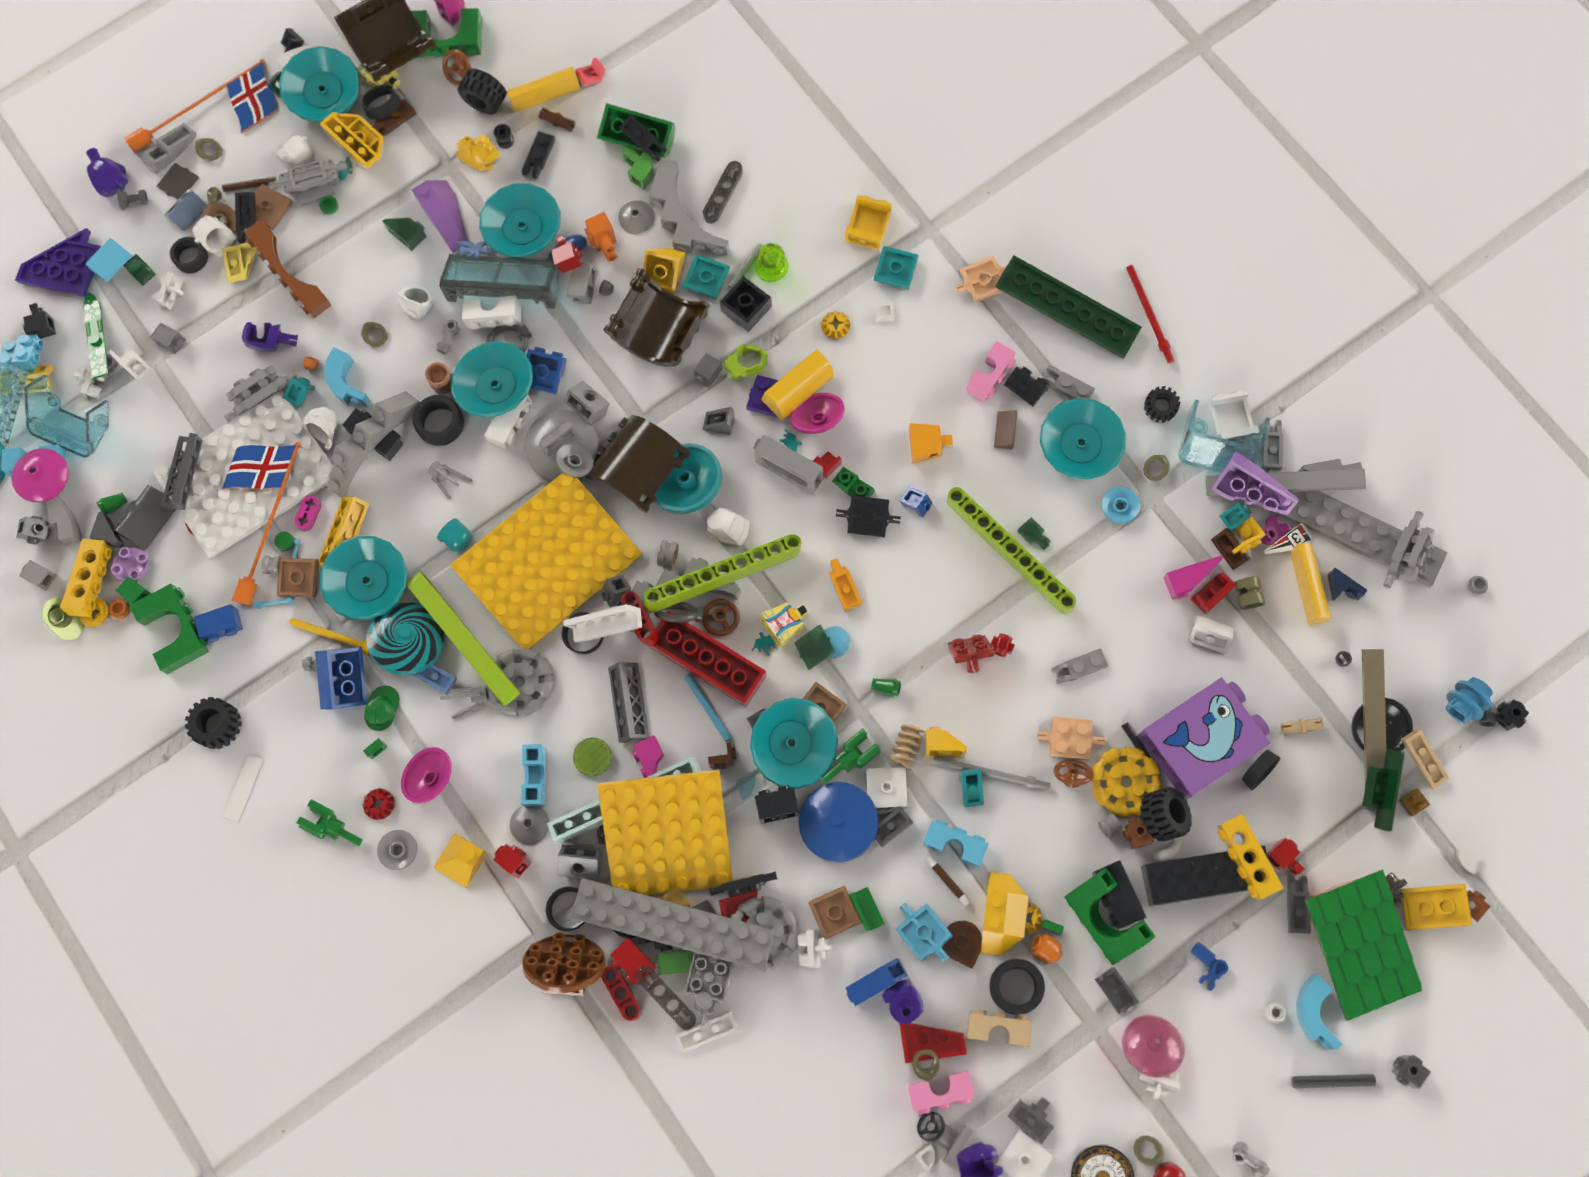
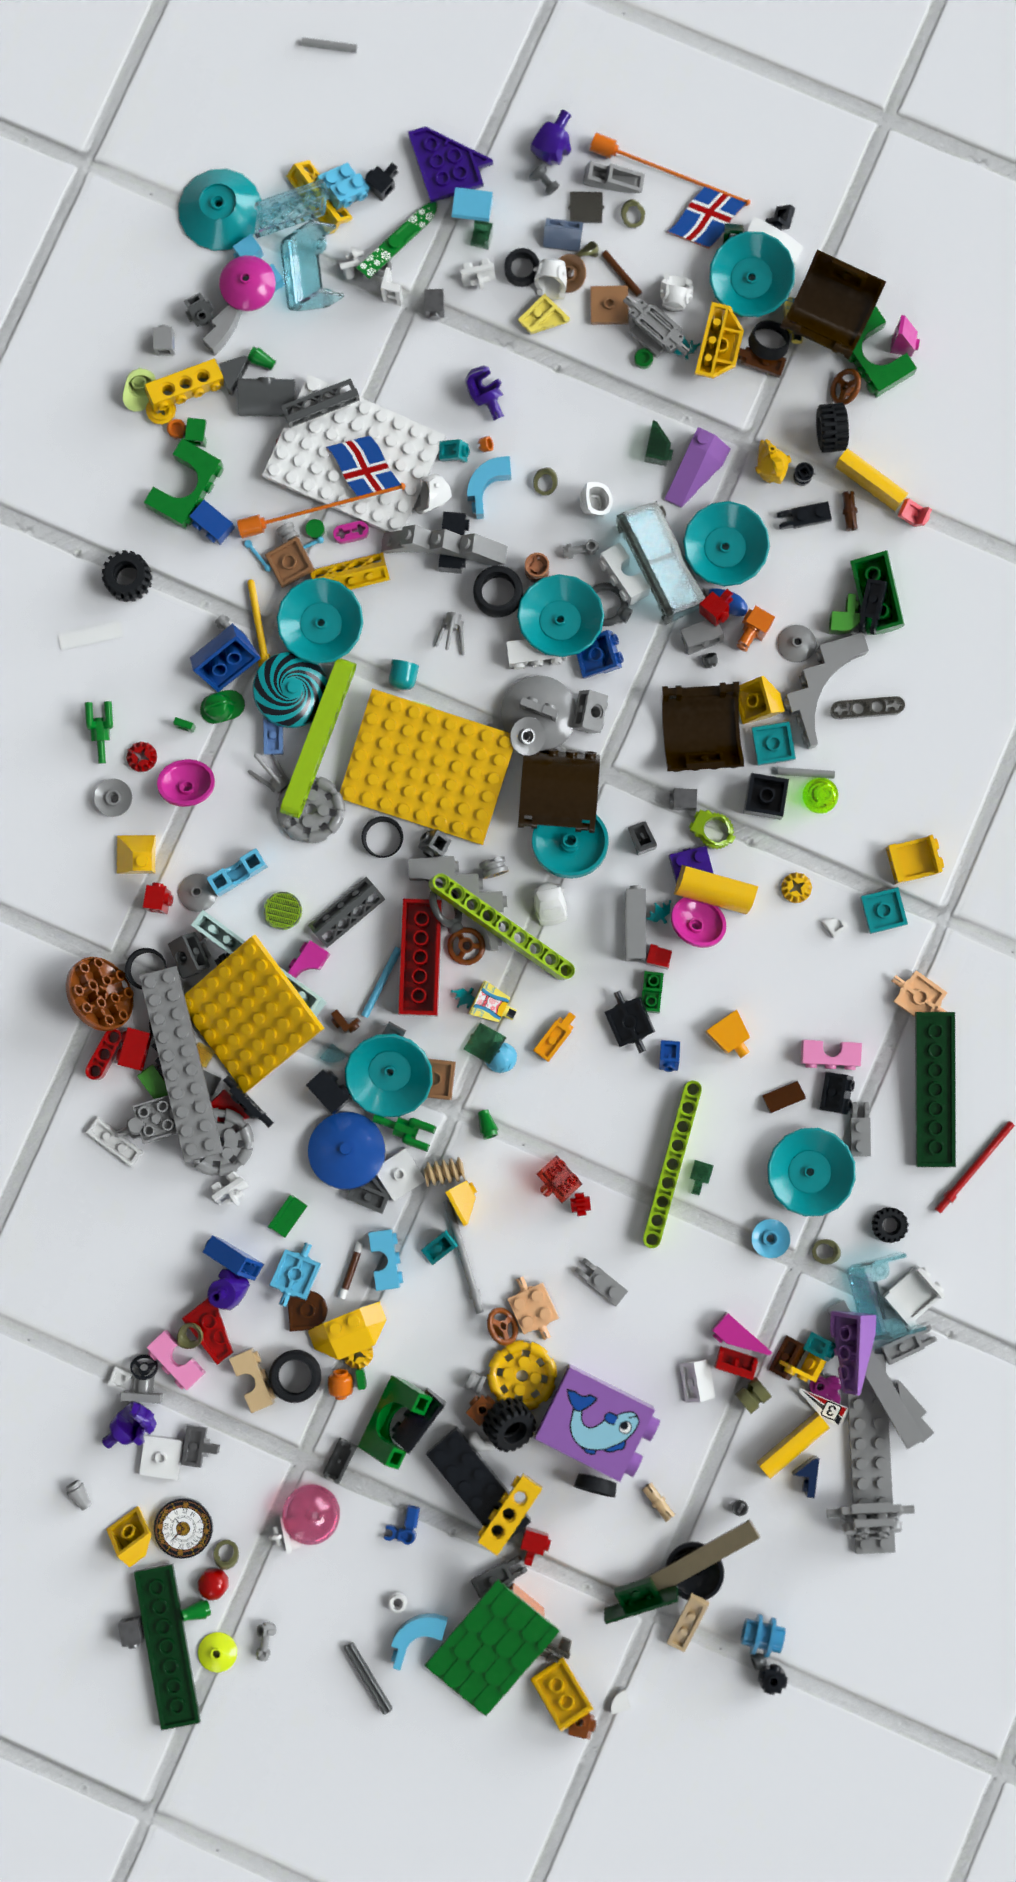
camera: 60 degrees right, 10 degrees up
(130, 563) = (218, 412): lavender dish -> none
(243, 387) = (443, 411): light grey piece -> none
(244, 212) = (586, 293): black hinge -> none
(265, 241) = (572, 328): dark orange arch -> none
(471, 249) = (674, 514): medium blue piece -> none
(605, 623) = (396, 855): white fence -> none
(647, 624) = (419, 872): red beam -> none
(663, 999) = (121, 1093): clear smoke beam -> none
(834, 912) = (269, 1190): medium nougat plate -> none
(1134, 739) = (563, 1365): black bar -> none
(1410, 1071) = (407, 1743): dark grey brick -> none
(1414, 802) = (647, 1632): pearl gold tile -> none
(1477, 585) = (879, 1594): light grey plate -> none

